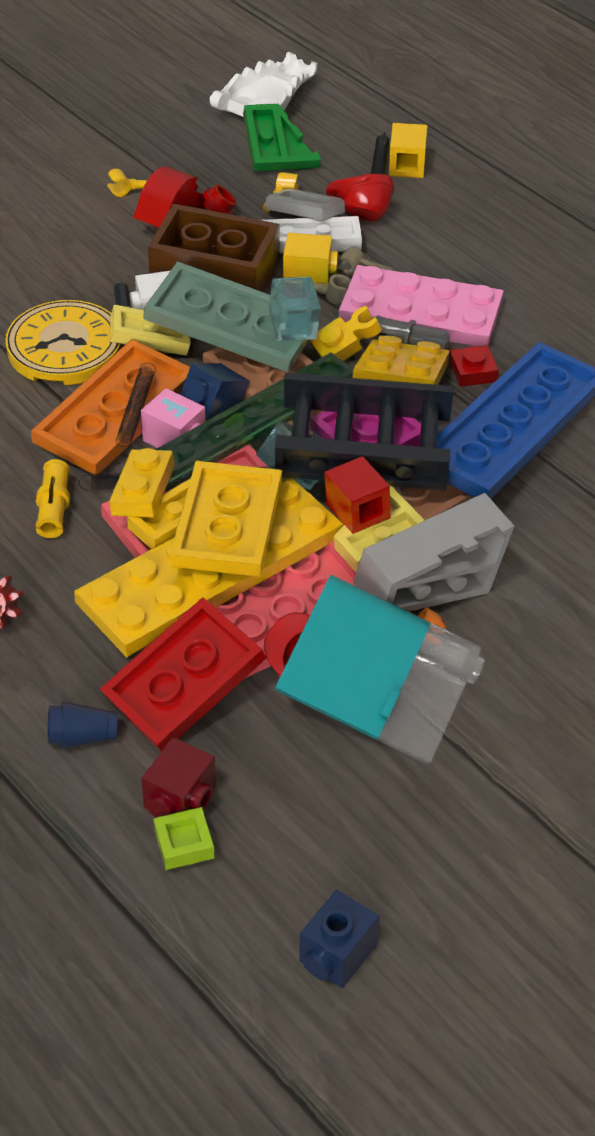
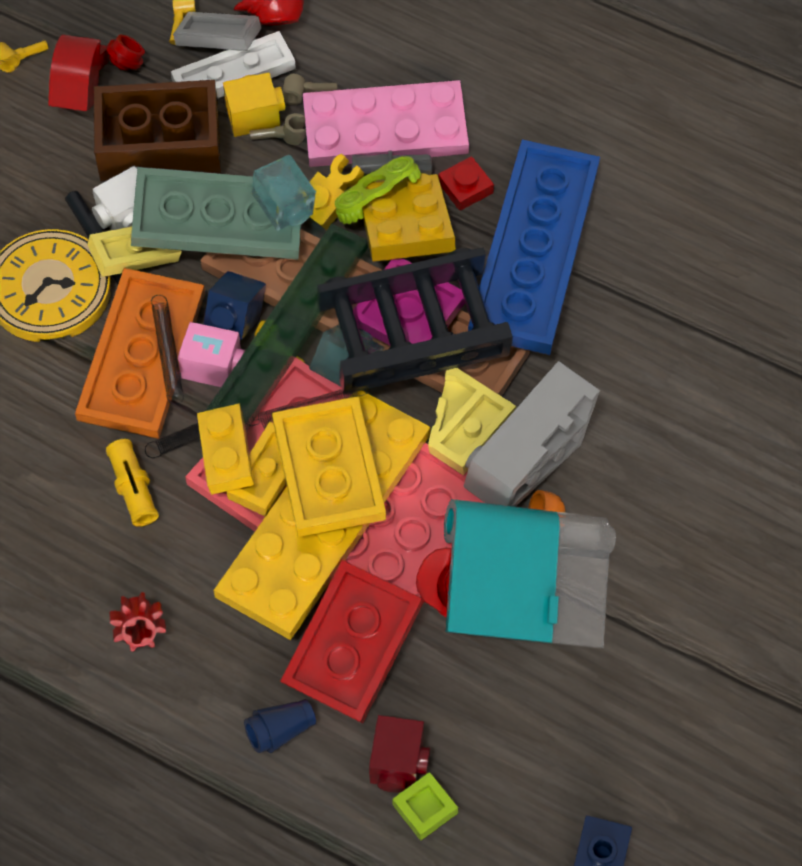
camera: 20 degrees left, 15 degrees up
(354, 344) = (350, 202): none -> lime piece
(357, 495) = (436, 396): red brick -> none

